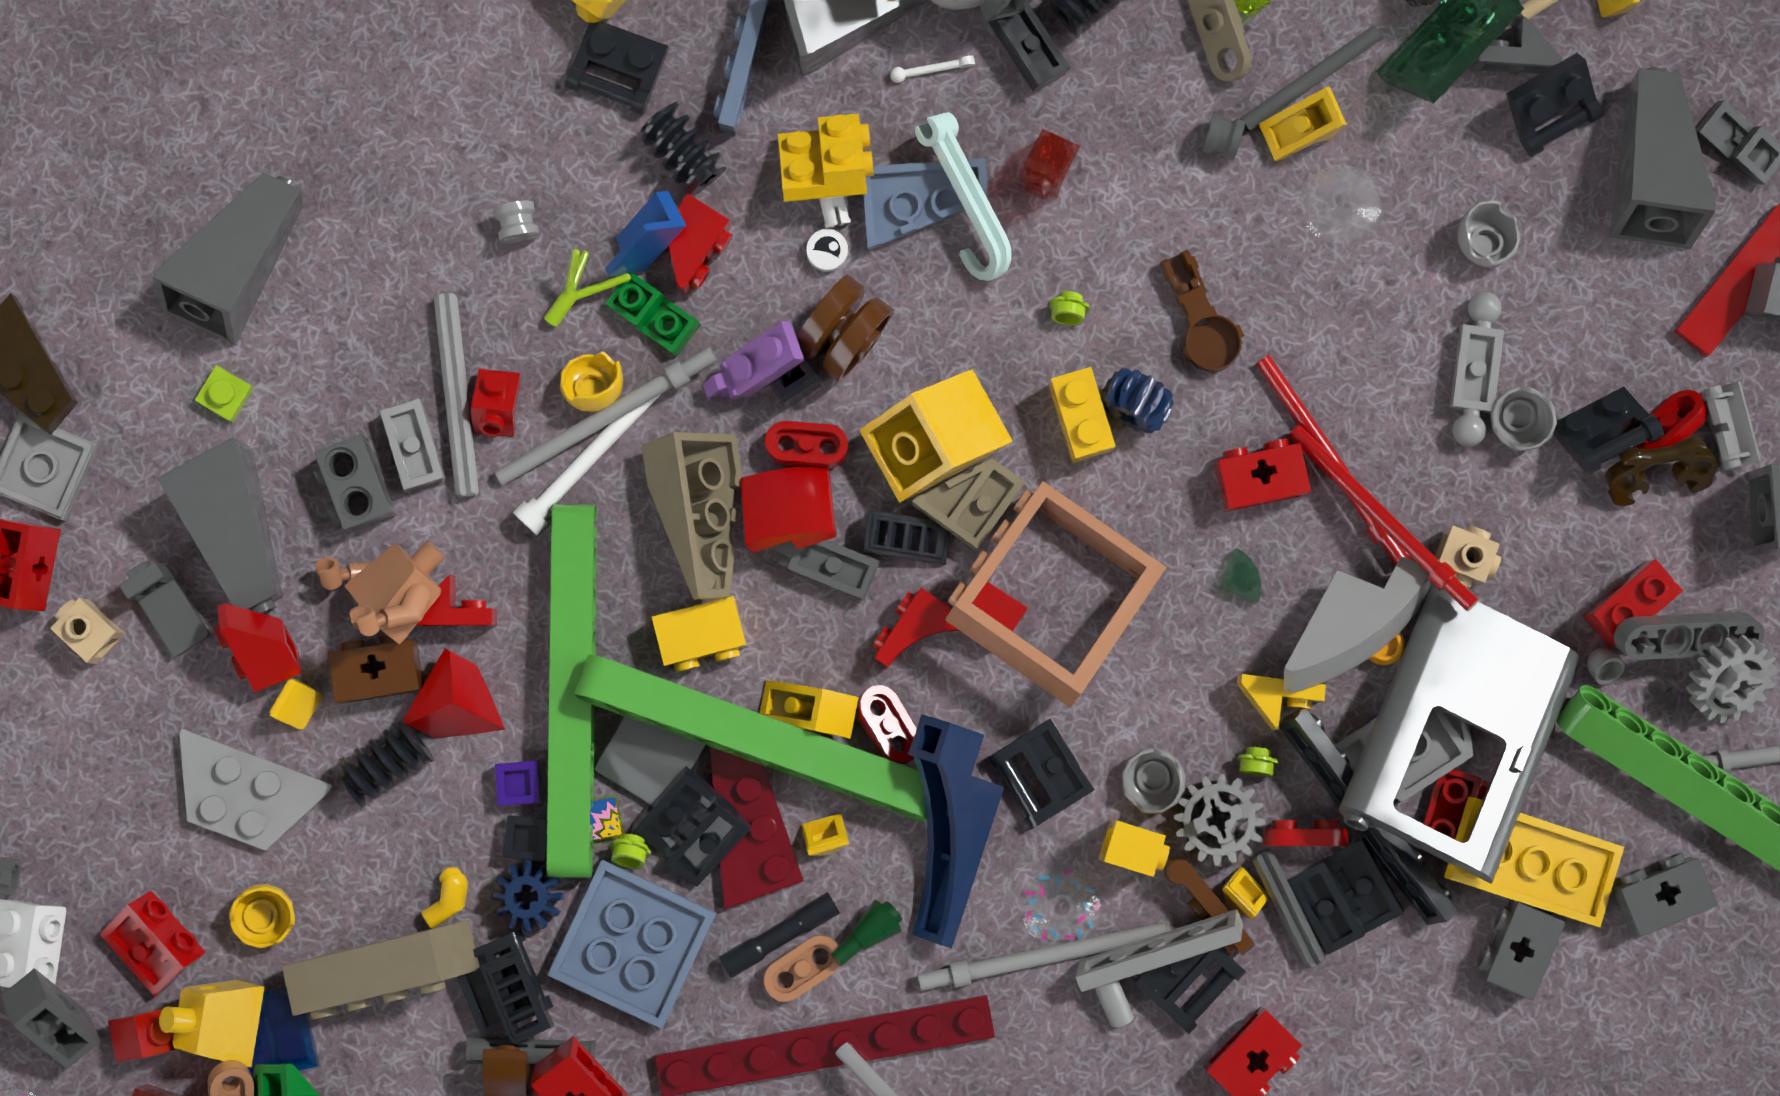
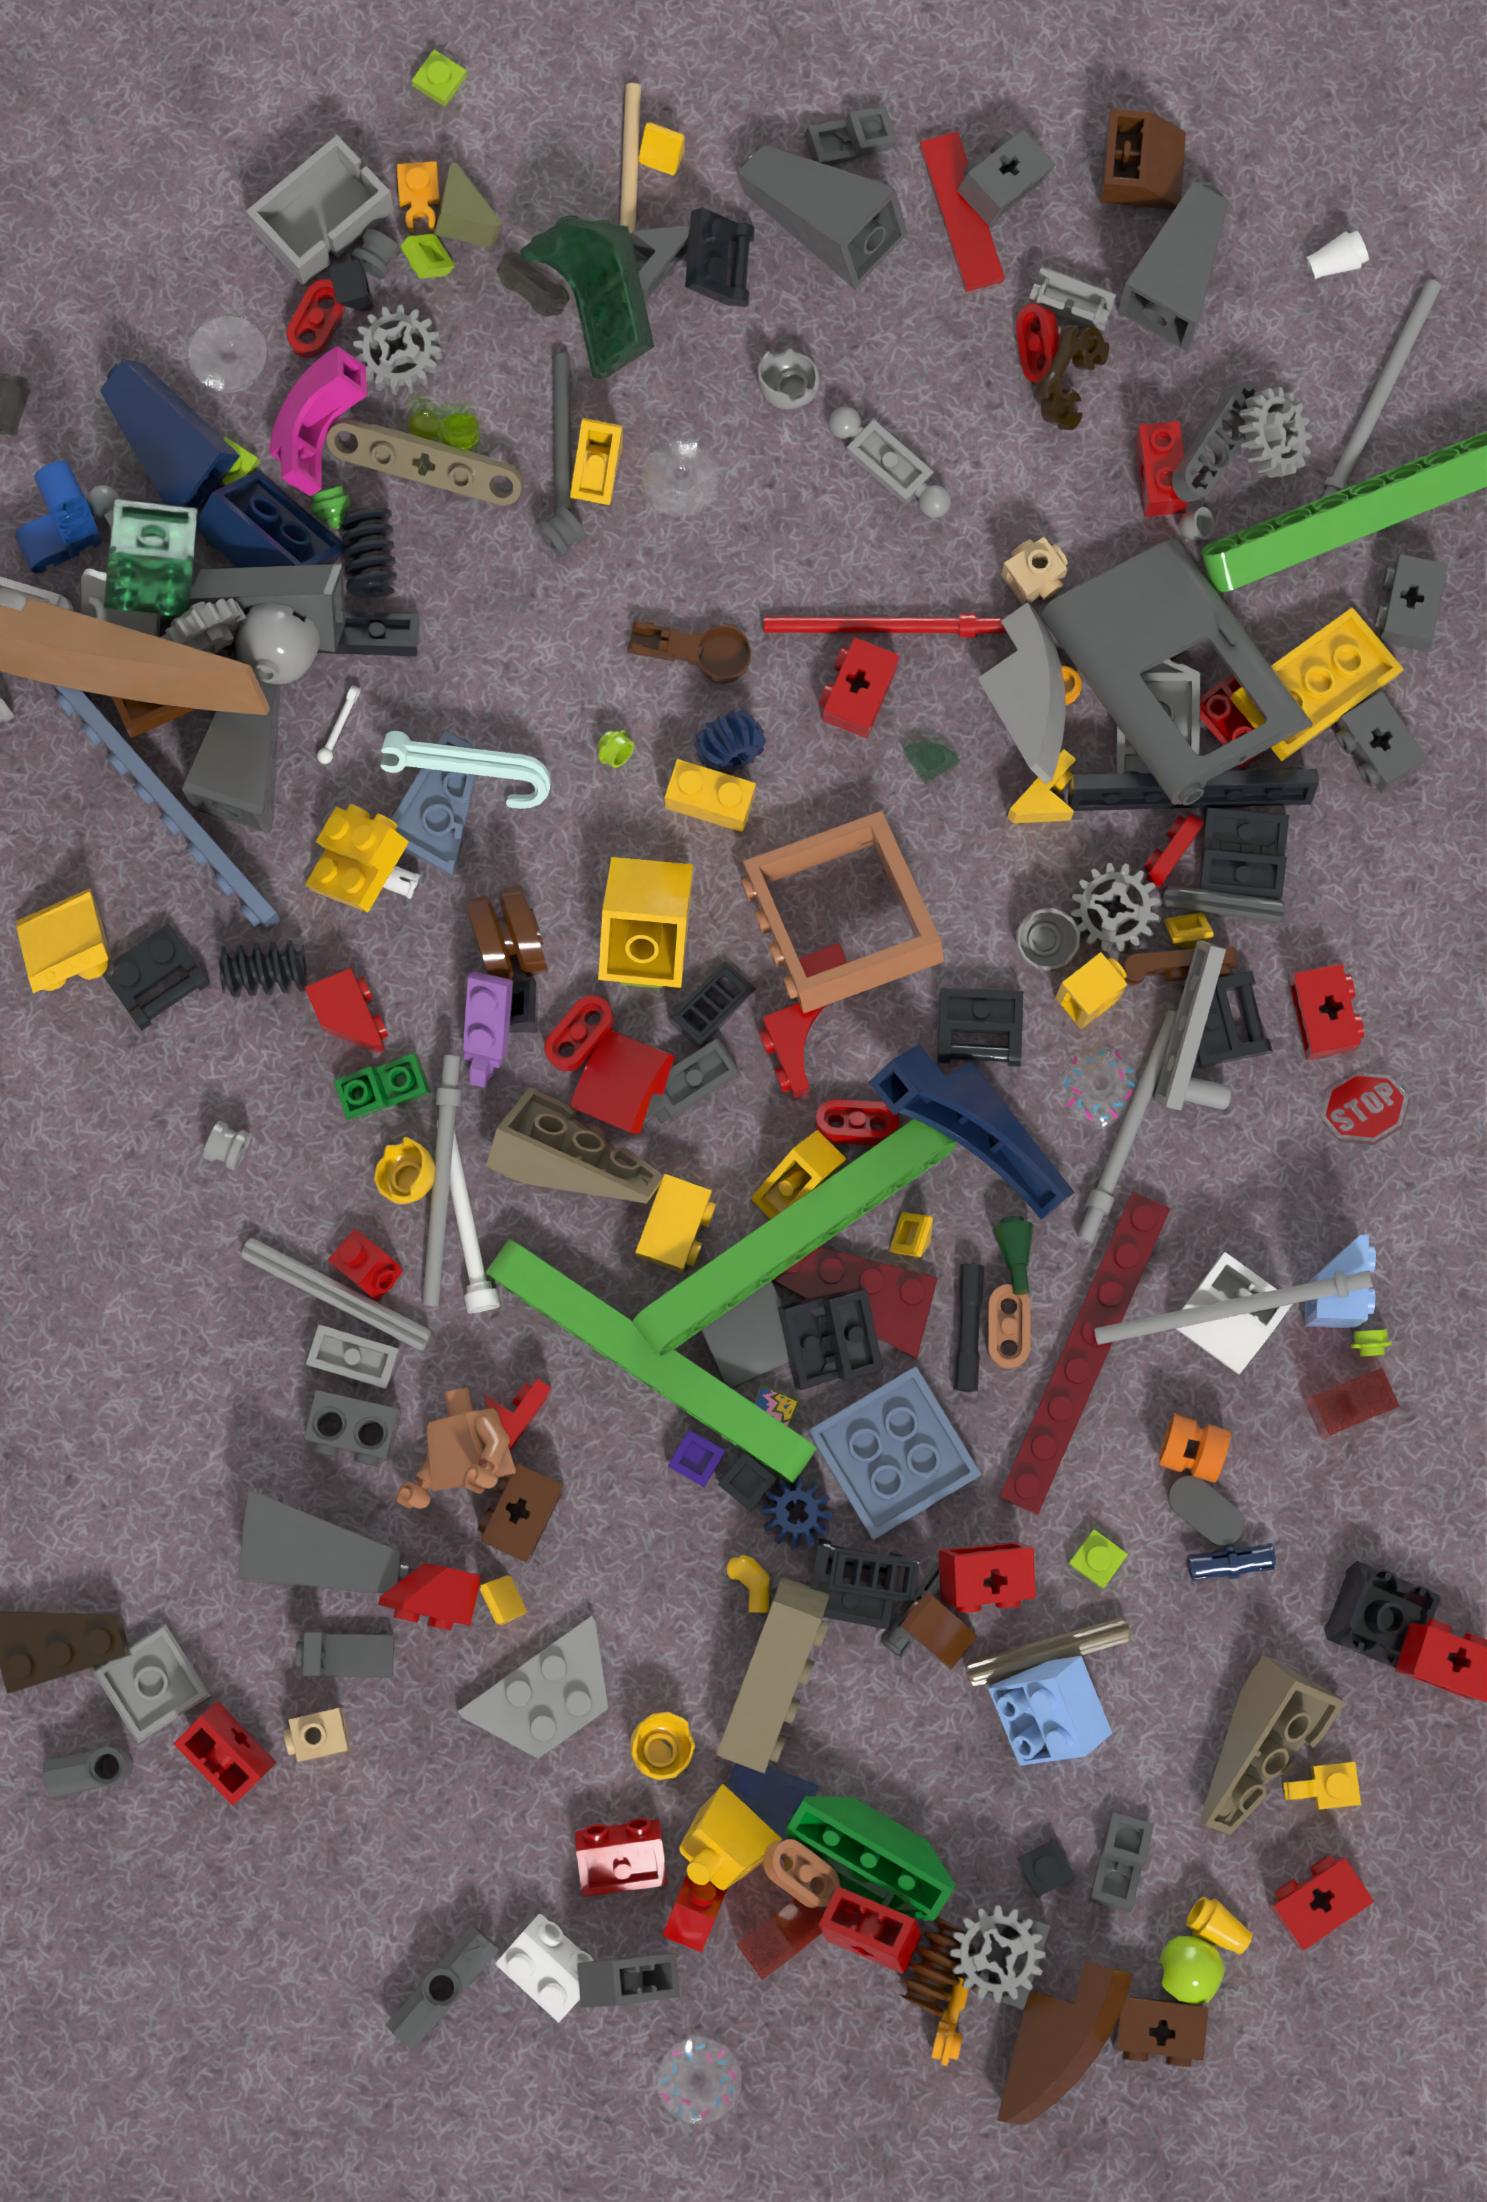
camera: 55 degrees left, 5 degrees down
(224, 393) = (198, 1487): lime plate -> none
(227, 263) = (93, 1412): dark grey slope -> none
(383, 762) = (602, 1557): black piece -> none
(454, 701) = (591, 1466): red slope -> none
(570, 294) = (319, 1143): lime plant -> none
(629, 851) = (816, 1404): lime plate -> none
(647, 235) = (316, 1042): blue panel -> none
(827, 250) = (429, 910): white tile -> none
(971, 501) = (719, 931): dark tan wing -> none
(1048, 165) = (487, 683): clear red slope -> none
(1257, 762) = (1088, 848): lime plate -> none
(1440, 574) = (1038, 597): red bar -> none
(1526, 408) = (949, 444): light grey hair -> none
(1606, 429) = (1000, 394): black plate -> none

